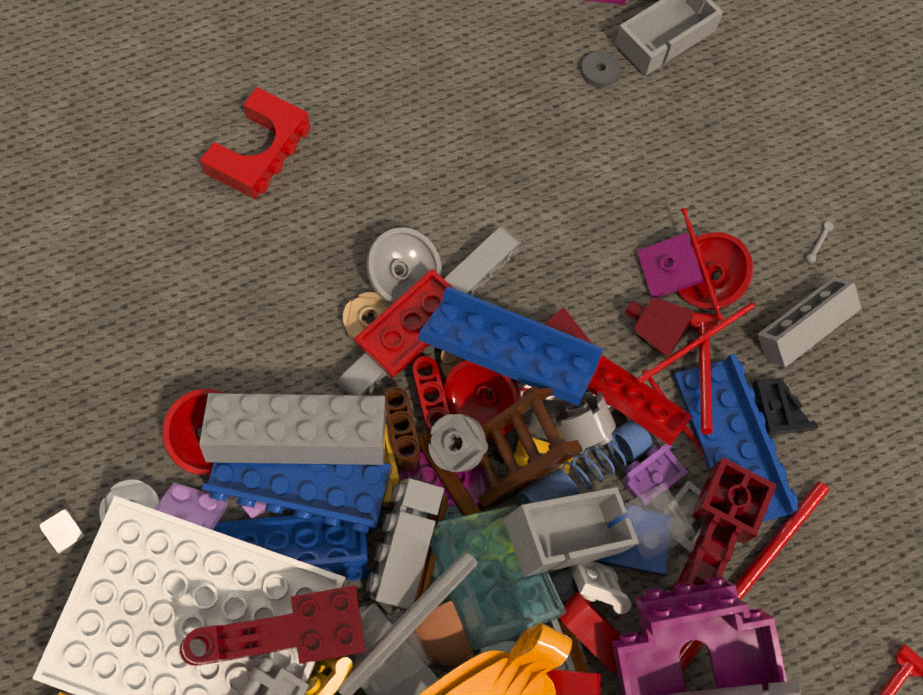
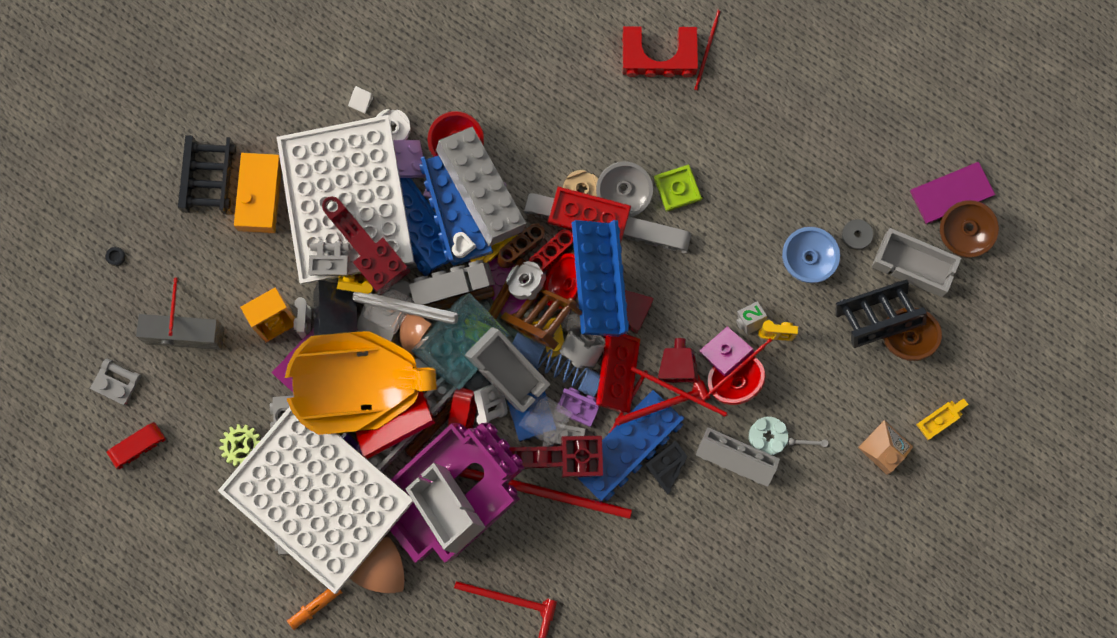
camera: 65 degrees right, 10 degrees up
(289, 99) = (707, 49): none -> red piece
(361, 497) = (463, 245): none -> white tile
(436, 213) = (677, 188): none -> lime plate
(604, 108) = (819, 246): none -> medium blue dish
(643, 217) = (751, 318): none -> light grey brick
(677, 196) = (784, 332): none -> yellow plate
(731, 95) = (881, 329): none -> black fence
(749, 72) = (925, 343): none -> reddish brown dish
(807, 273) = (761, 427): none -> light aqua plate
(855, 98) = (941, 418): none -> yellow hinge
(866, 168) = (886, 447): none -> medium nougat slope

